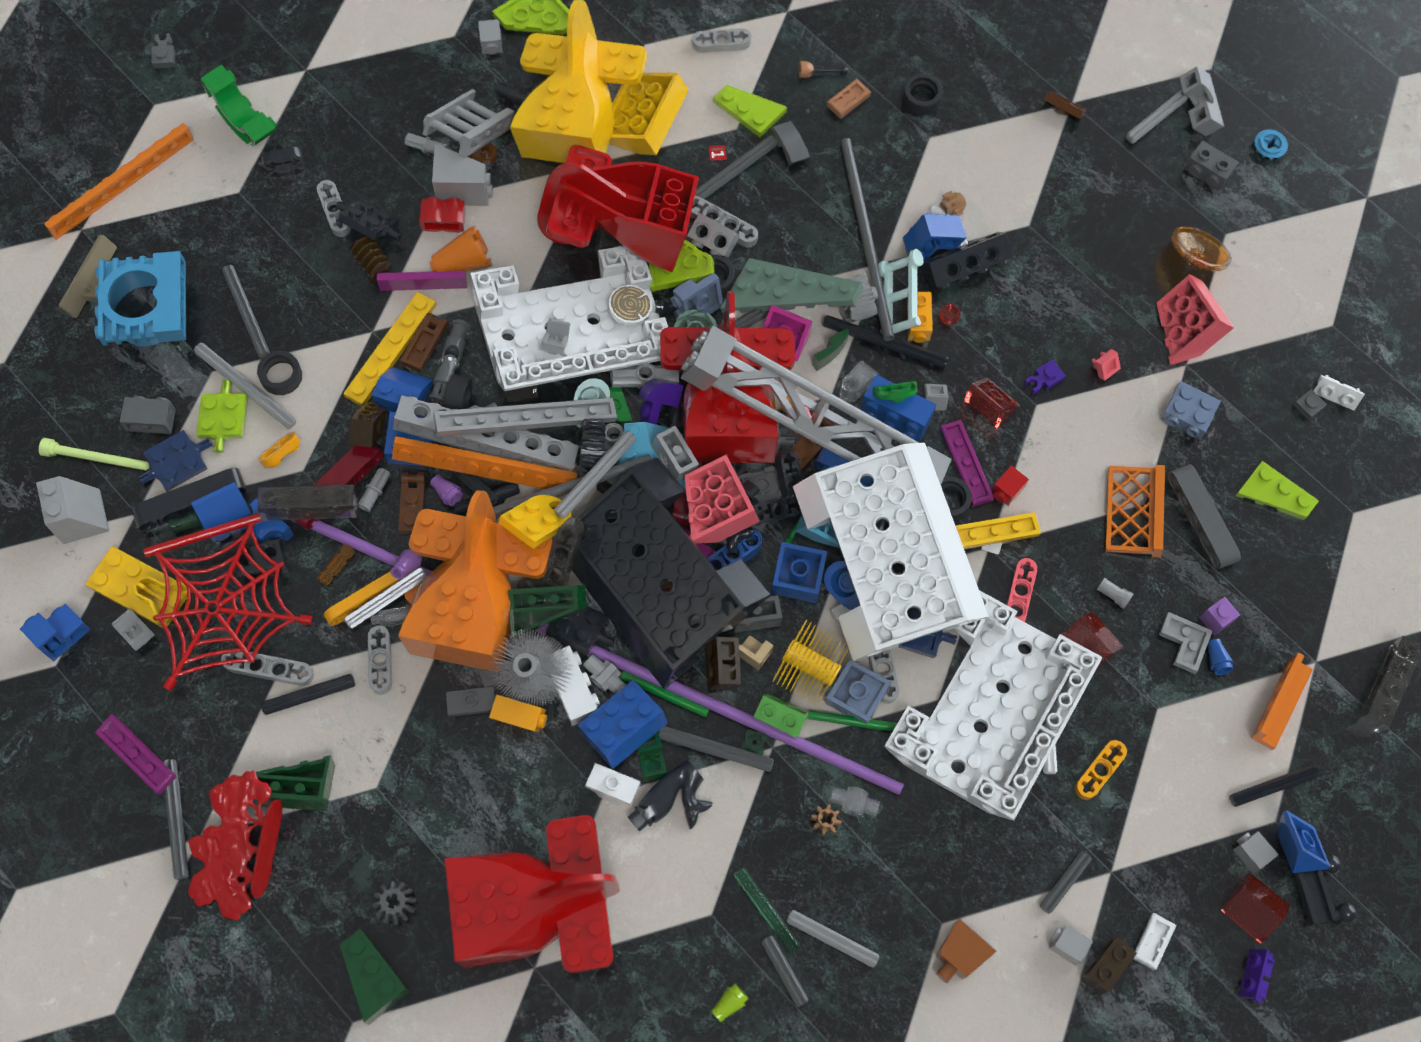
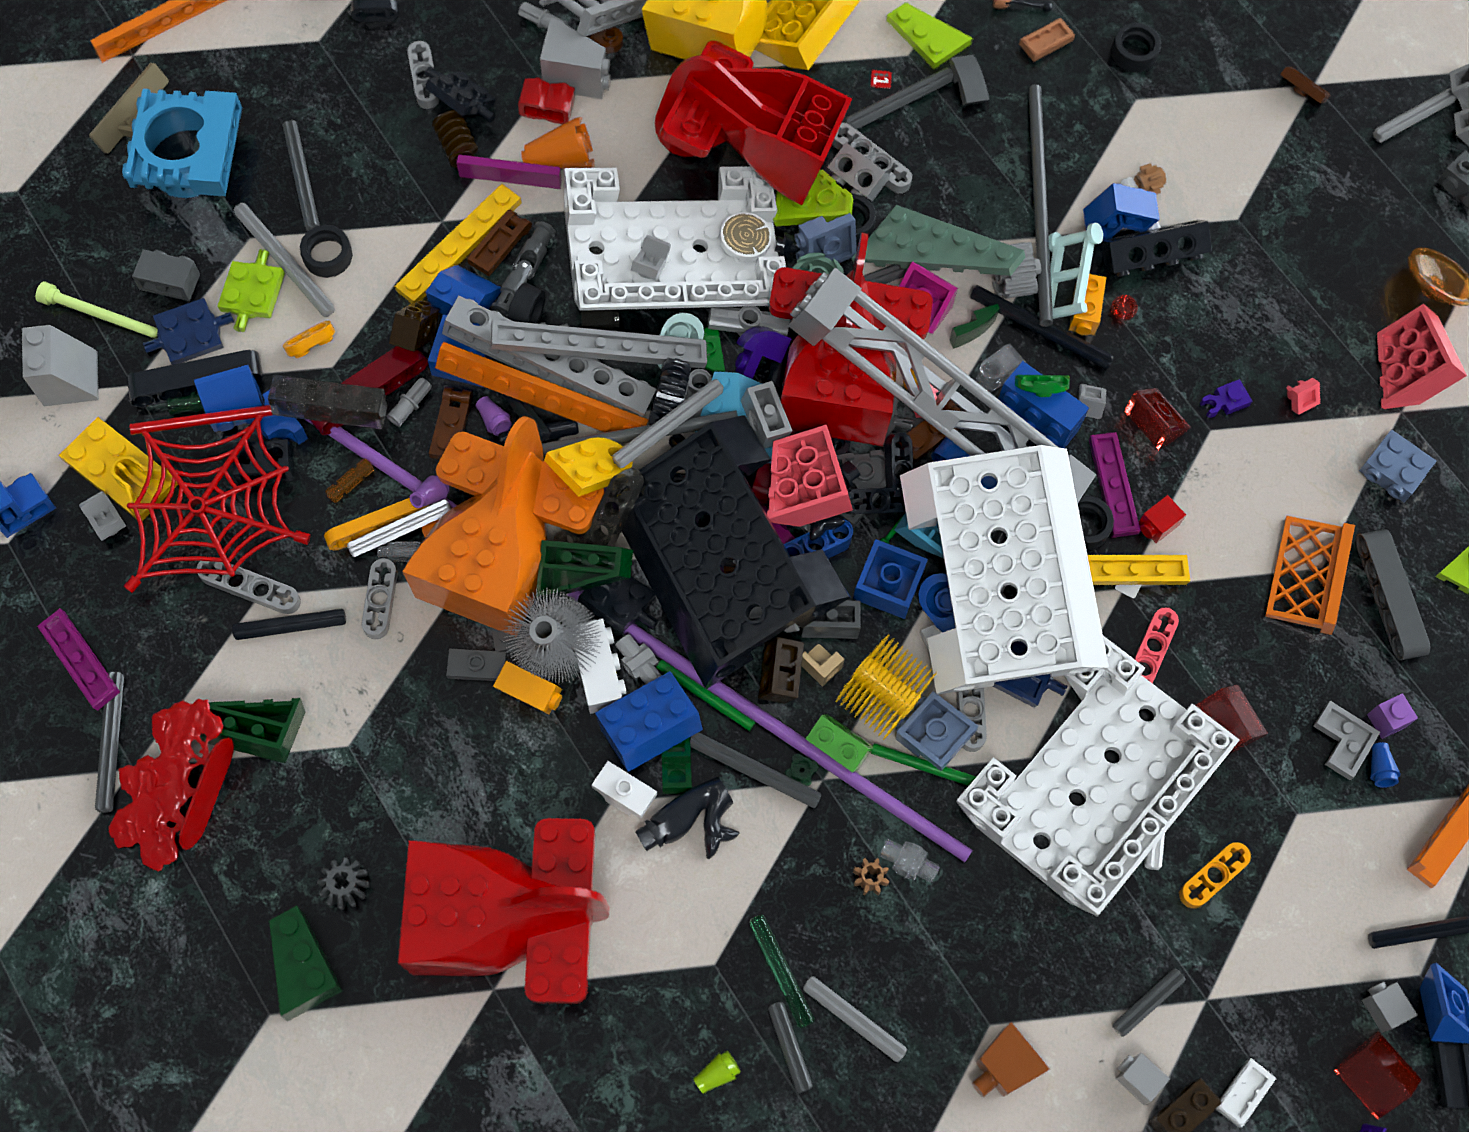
camera: 10 degrees right, 0 degrees up
(1120, 596) = (1274, 672): light grey pin -> none

